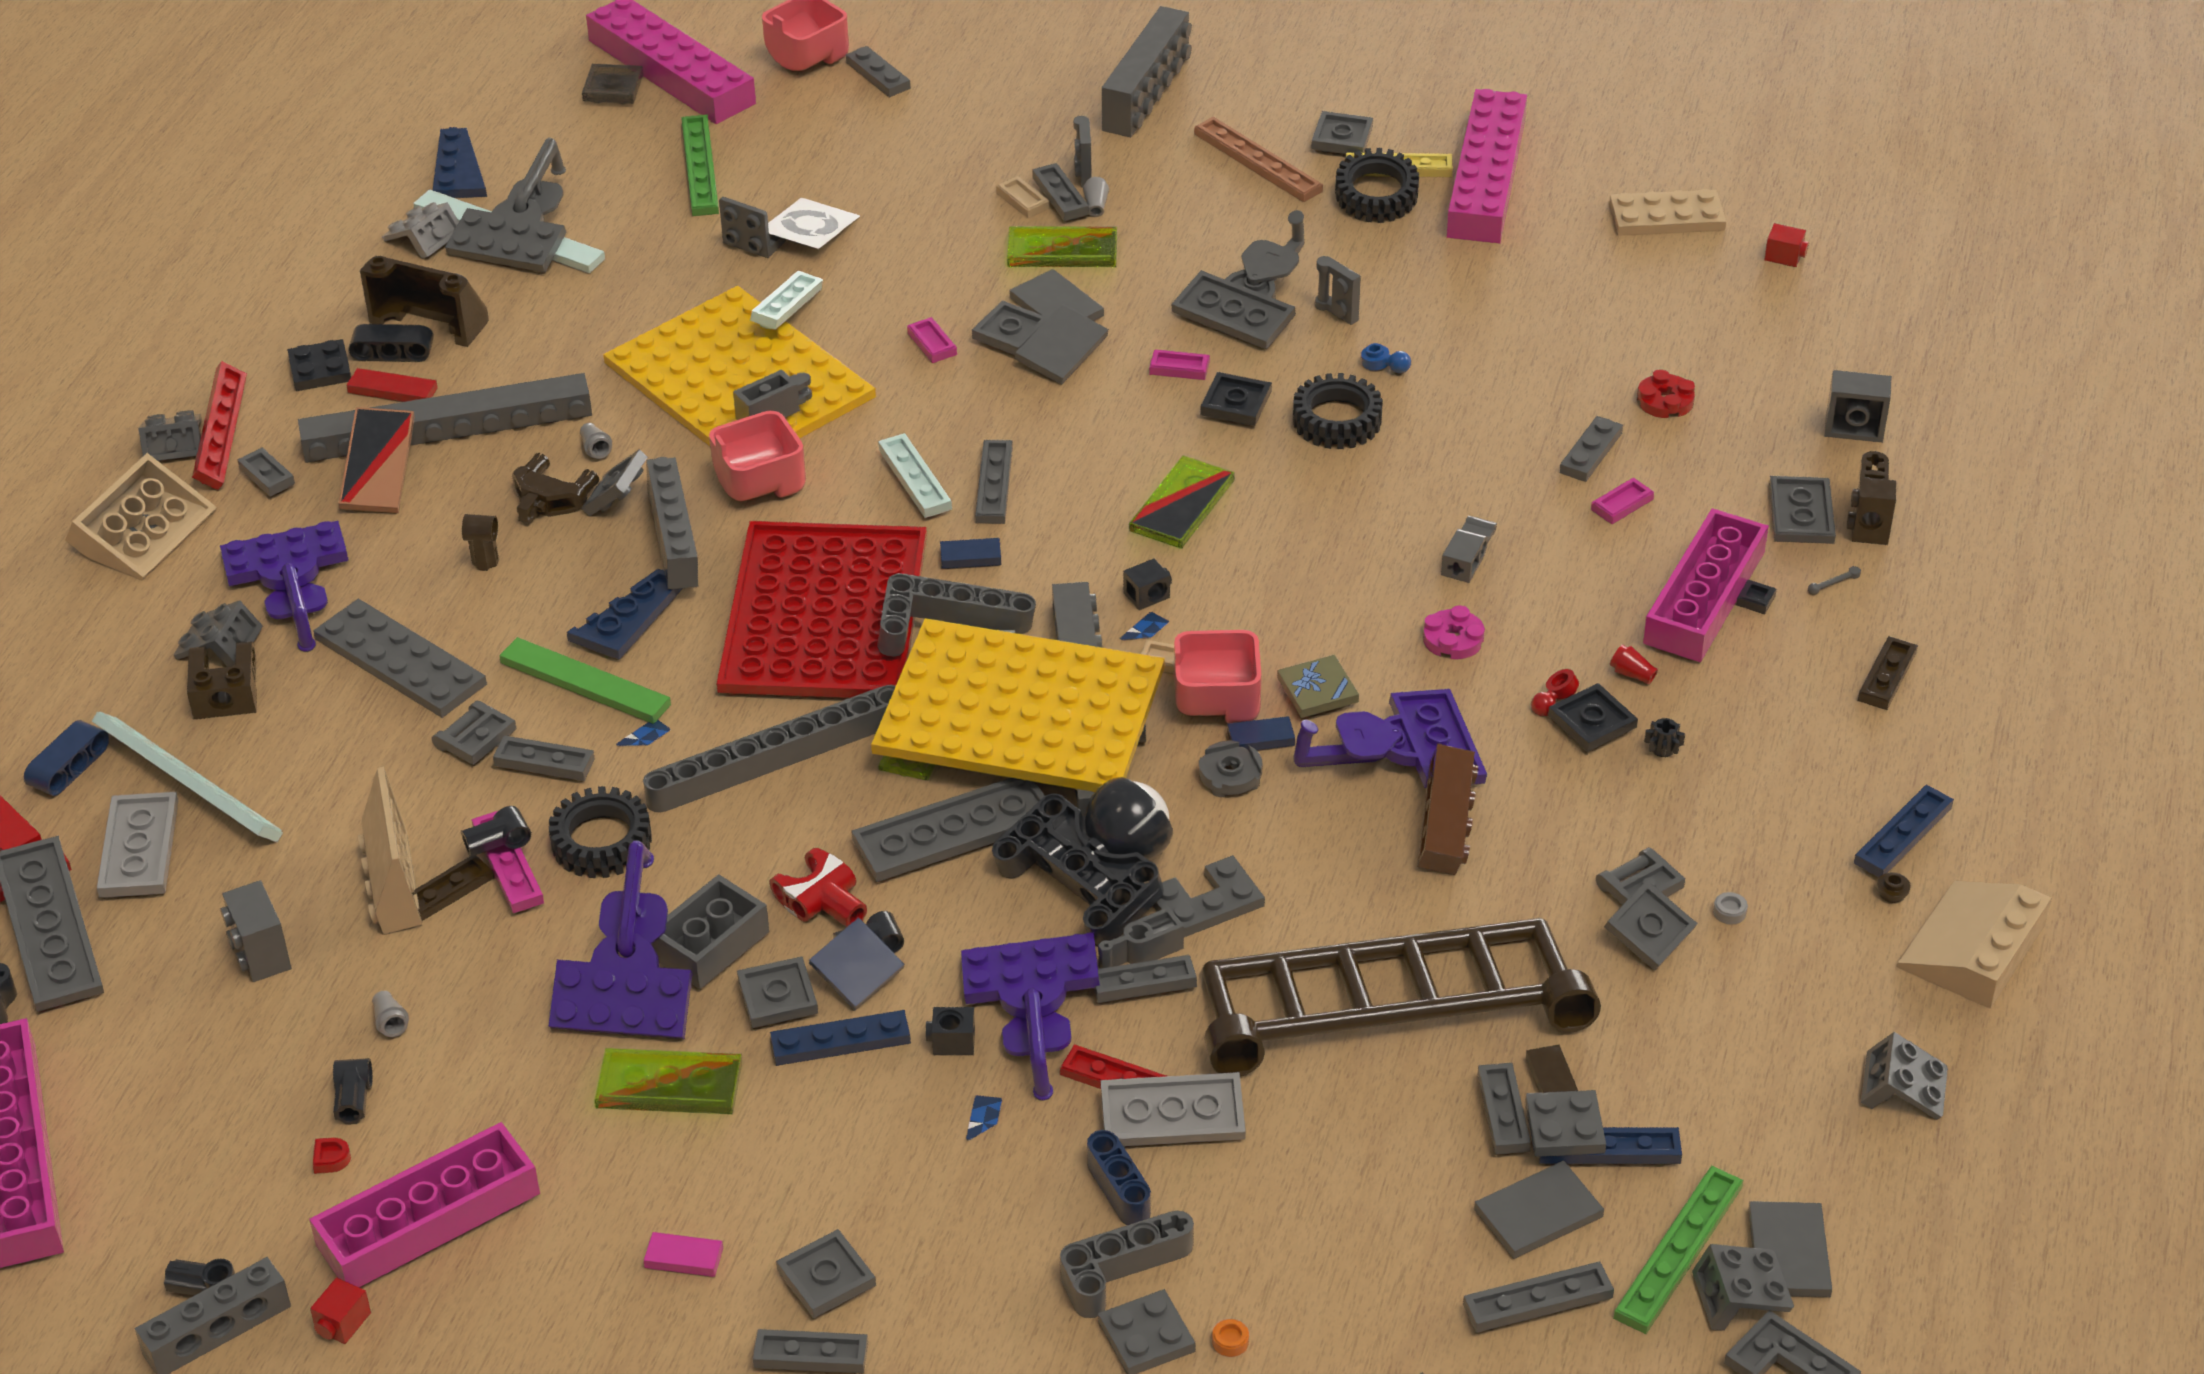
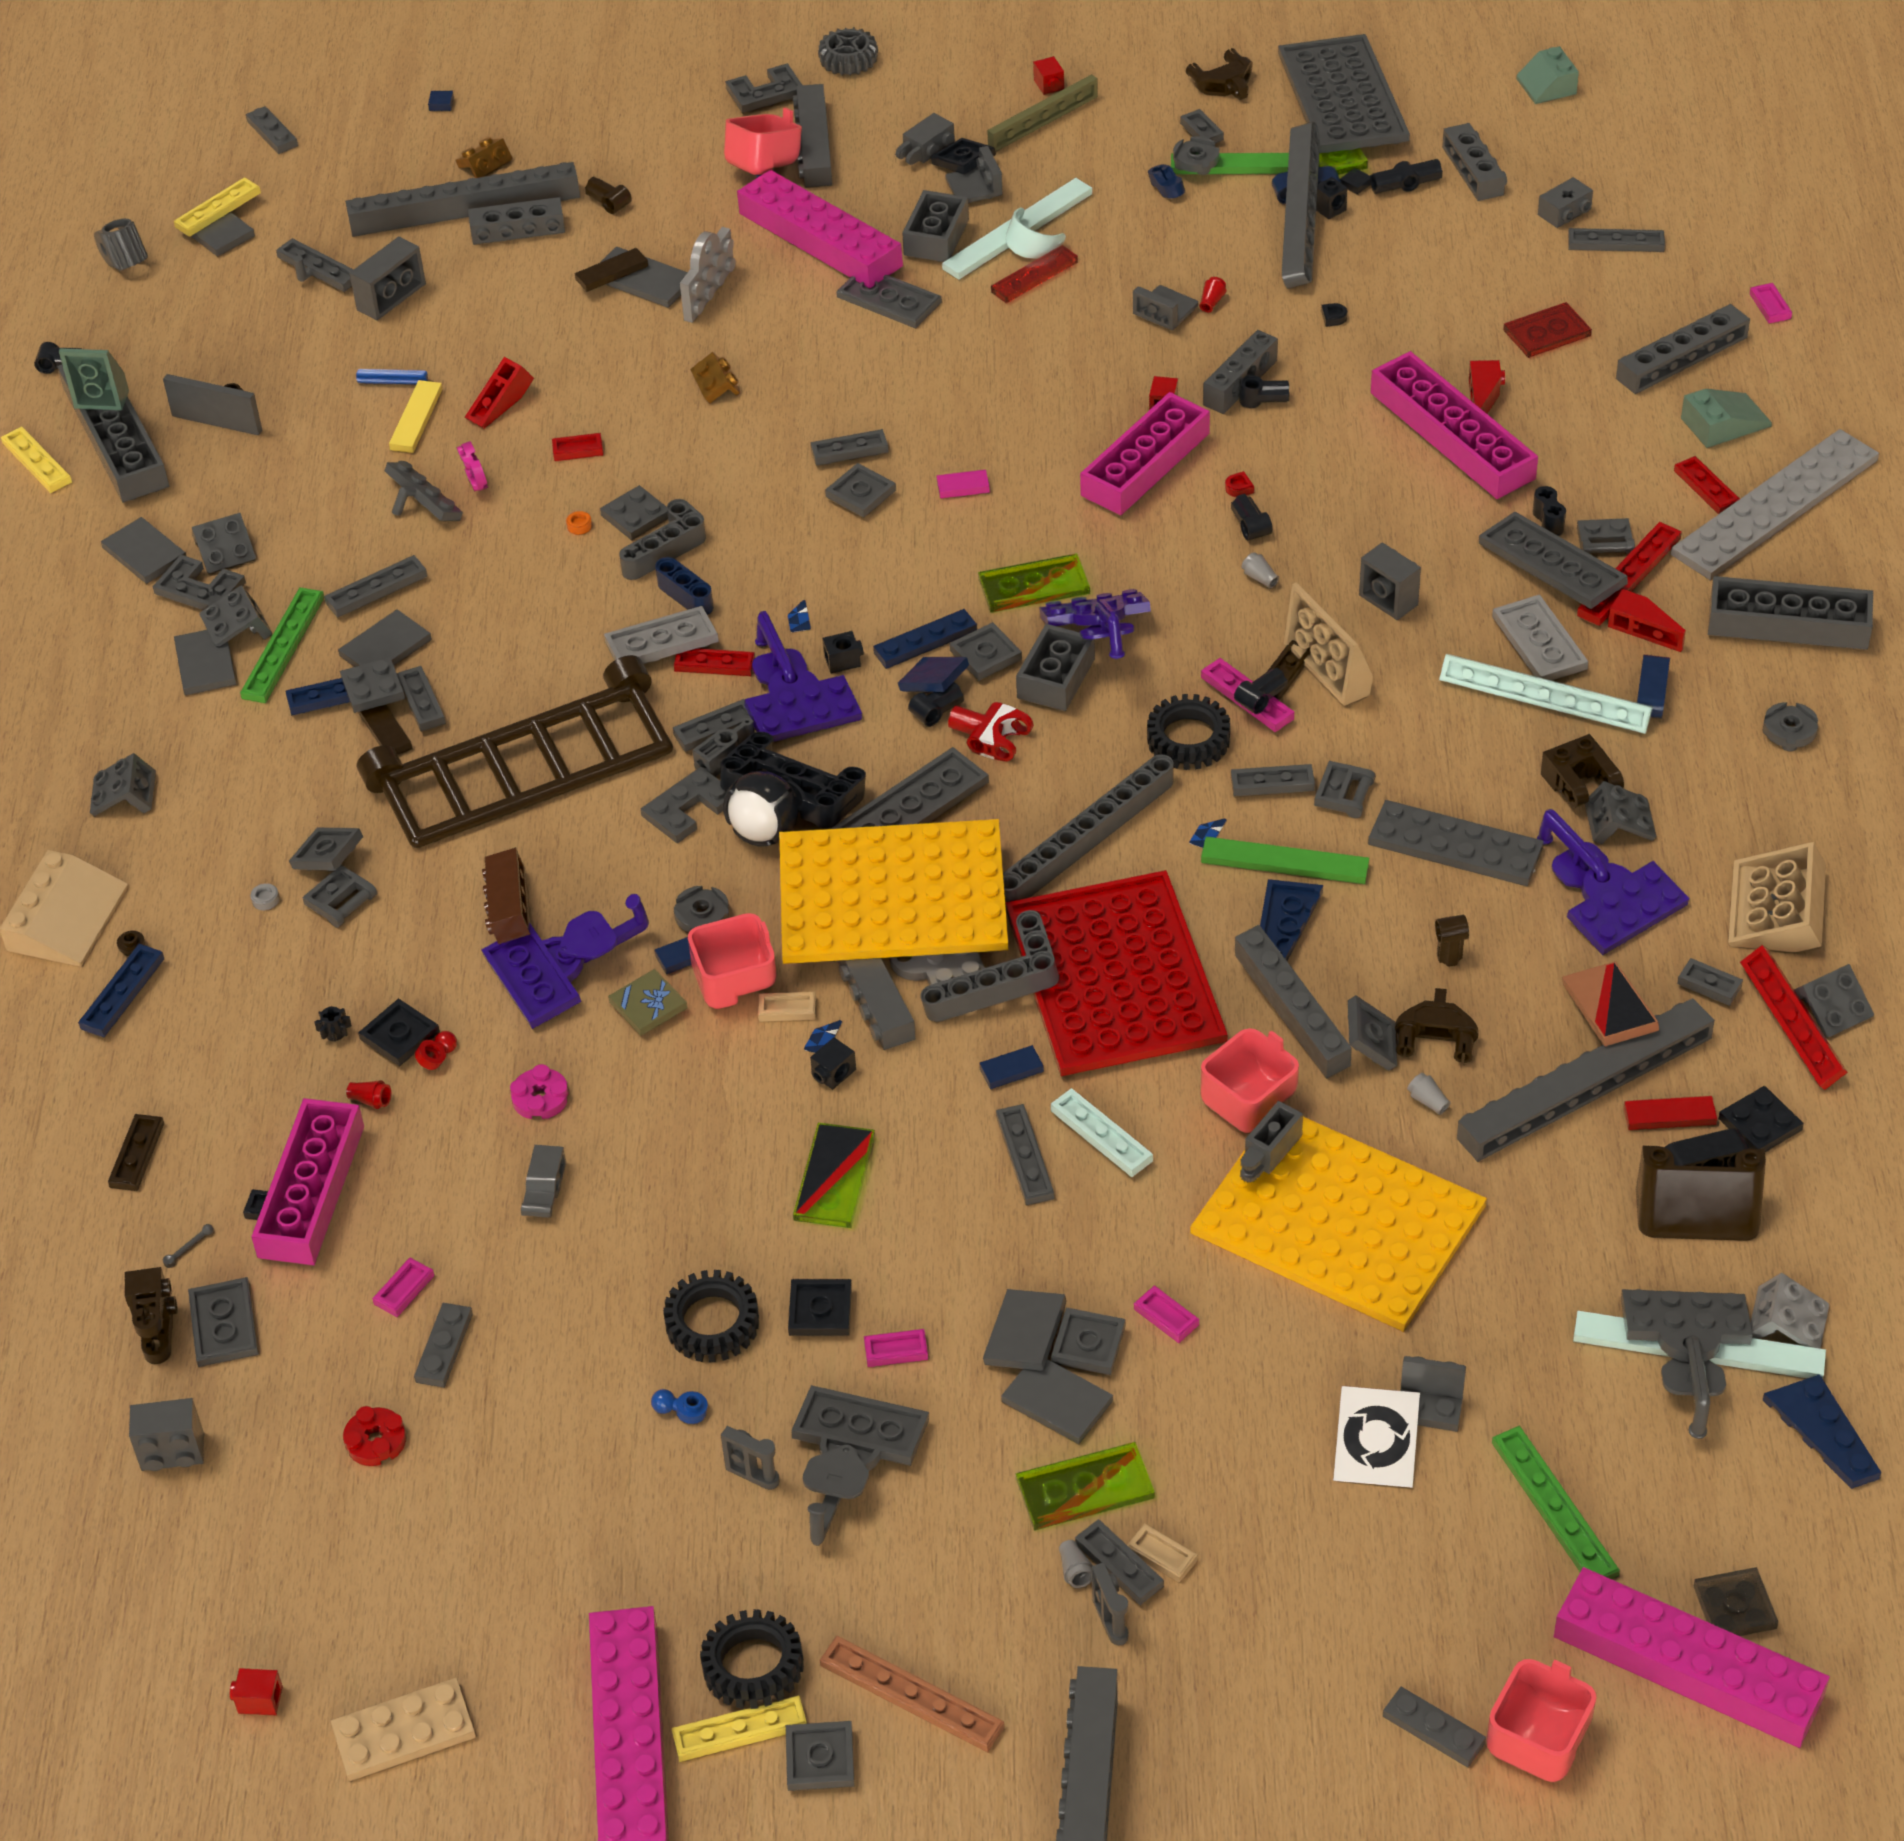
camera: 165 degrees right, 5 degrees up
(786, 300) = (1334, 1299): light aqua plate -> none

